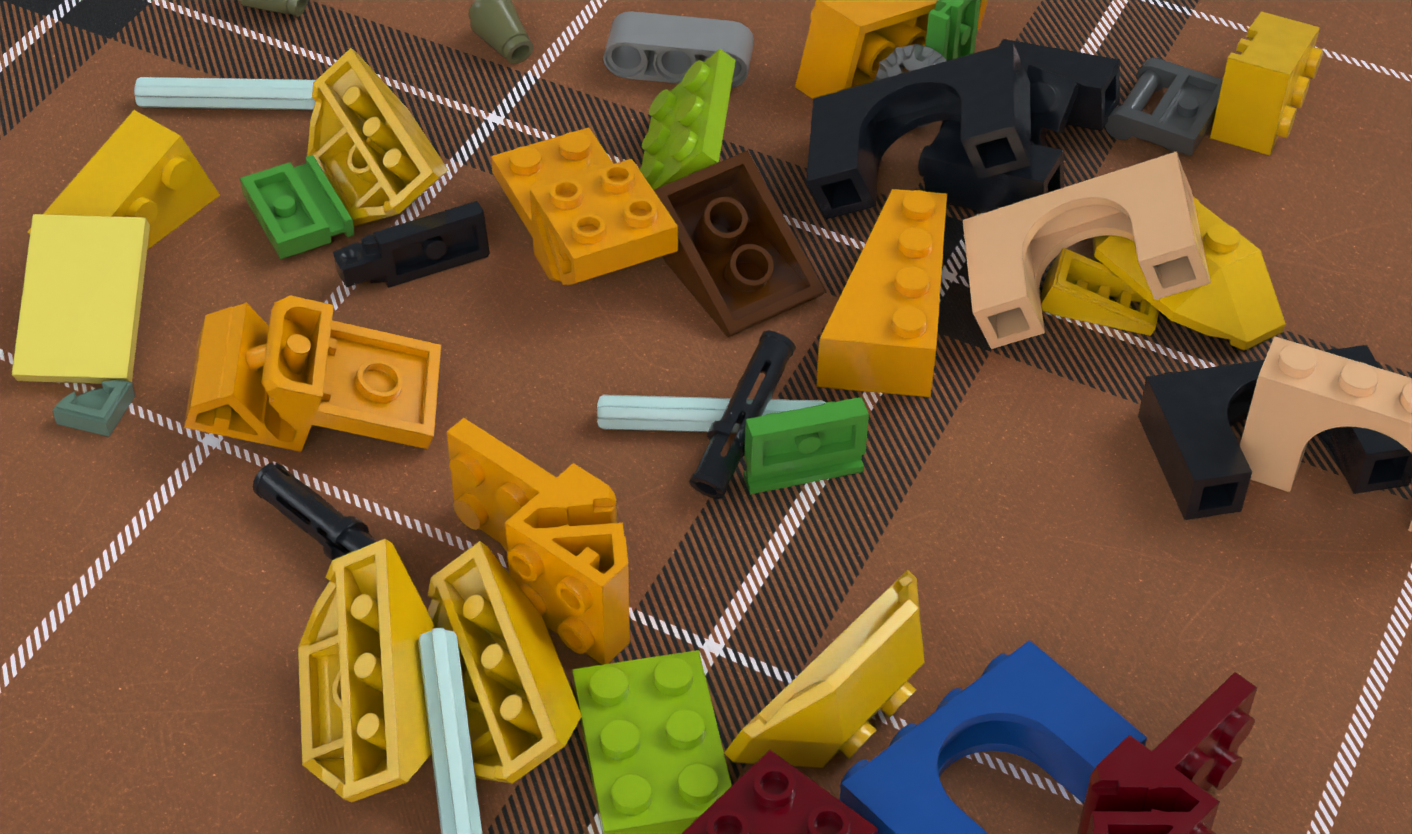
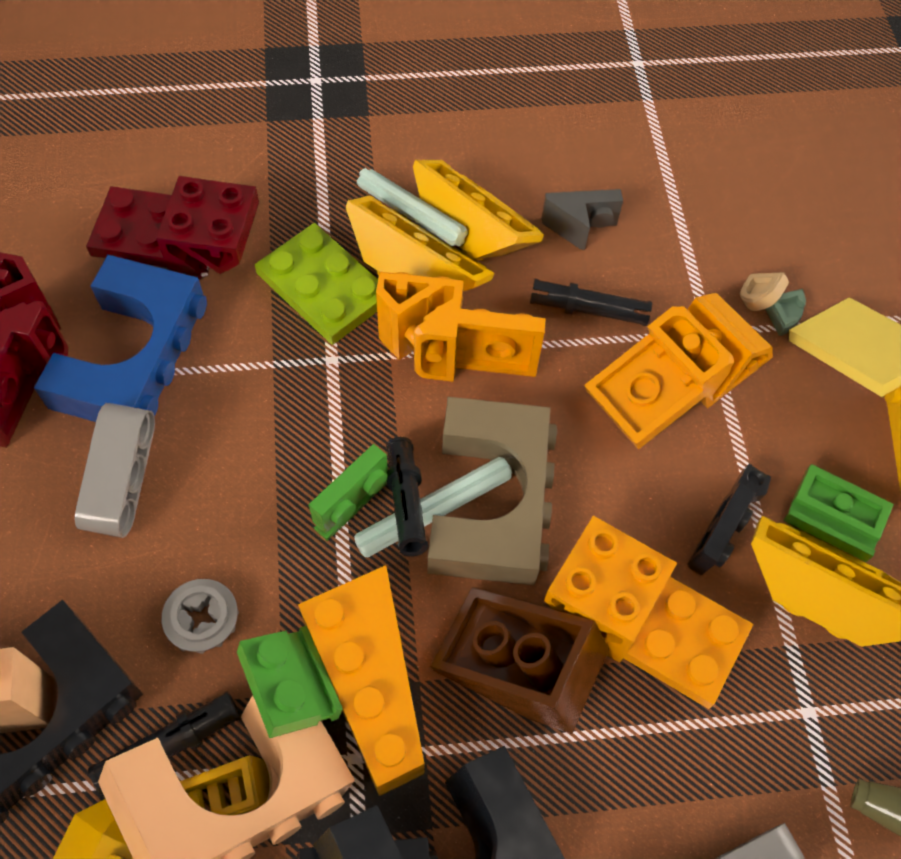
camera: 145 degrees right, 15 degrees up
(105, 427) = (763, 290): none -> tan tile
(215, 639) = (575, 212): none -> dark grey slope
(655, 331) = (511, 545): none -> dark tan arch
(688, 122) = (636, 743): lime plate -> none
(843, 687) = (232, 337): yellow wedge -> none
(983, 297) = (288, 681): none -> bright green plate
(1045, 421) = (194, 597): none -> light grey gear
(1075, 596) = (115, 470): none -> light grey beam
(1119, 348) = (184, 732): none -> black pin

